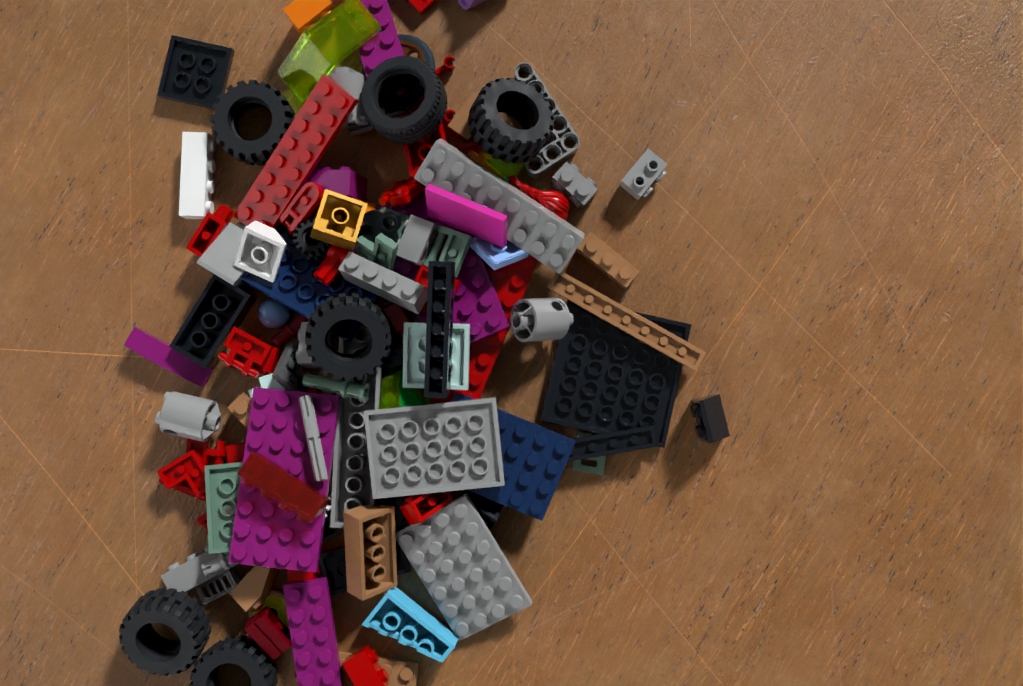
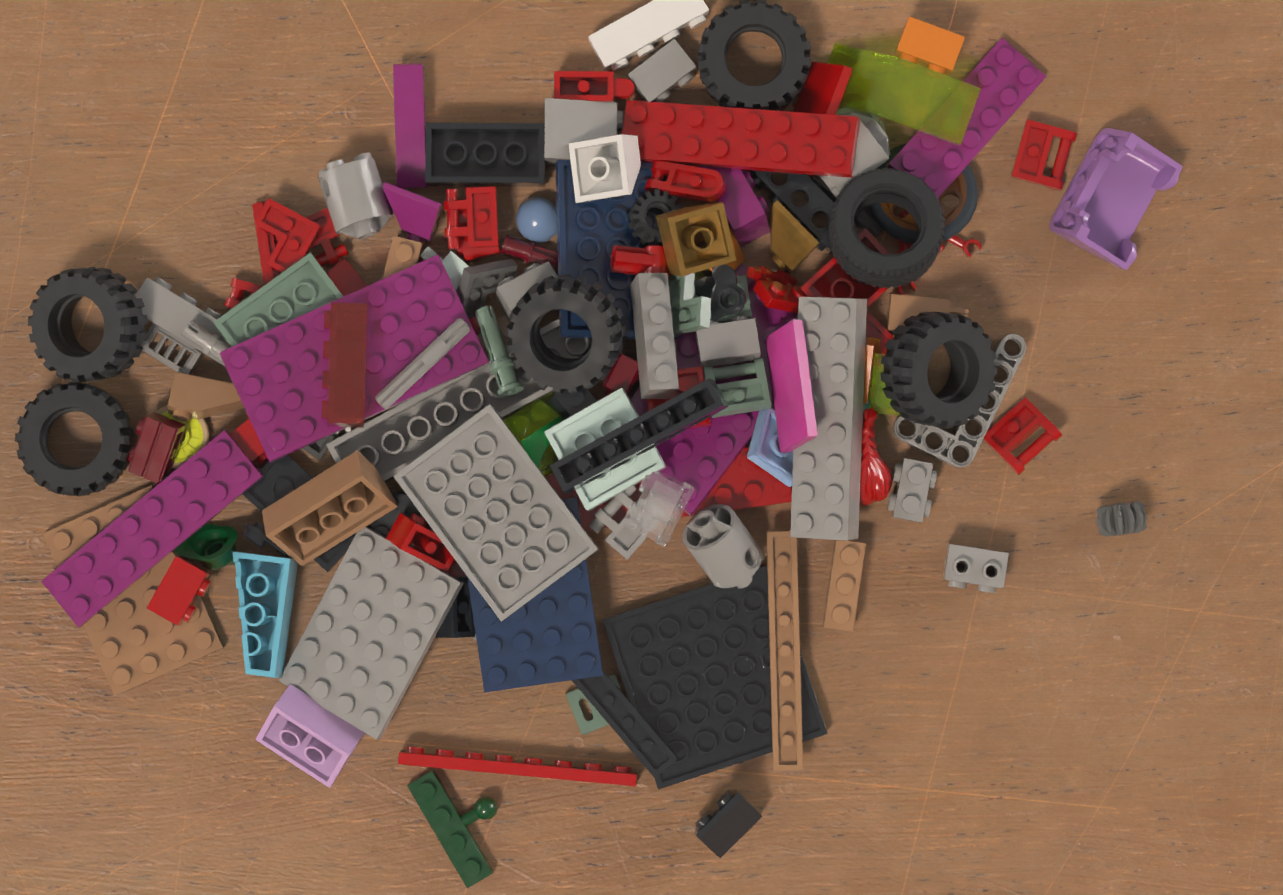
camera: 55 degrees right, 0 degrees up
(221, 385) = (414, 213): none -> magenta slope
(229, 183) = (662, 73): none -> light grey brick
(296, 88) = (823, 88): none -> red tile
(350, 635) = (210, 546): none -> dark green piece
(359, 604) = (257, 535): none -> black plate
(368, 153) = (817, 201): none -> black brick
(376, 166) = (789, 239): none -> pearl gold slope
(492, 343) = (659, 507): none -> clear brick
(495, 366) = (621, 537): none -> light grey plate
(504, 643) = (309, 736): none -> lavender slope
(574, 101) = (1015, 429): none -> red plate
(594, 532) = (505, 765): none -> red plate
(611, 587) = (452, 827): none -> dark green plate
(667, 69) = (1121, 518): none -> dark grey gear

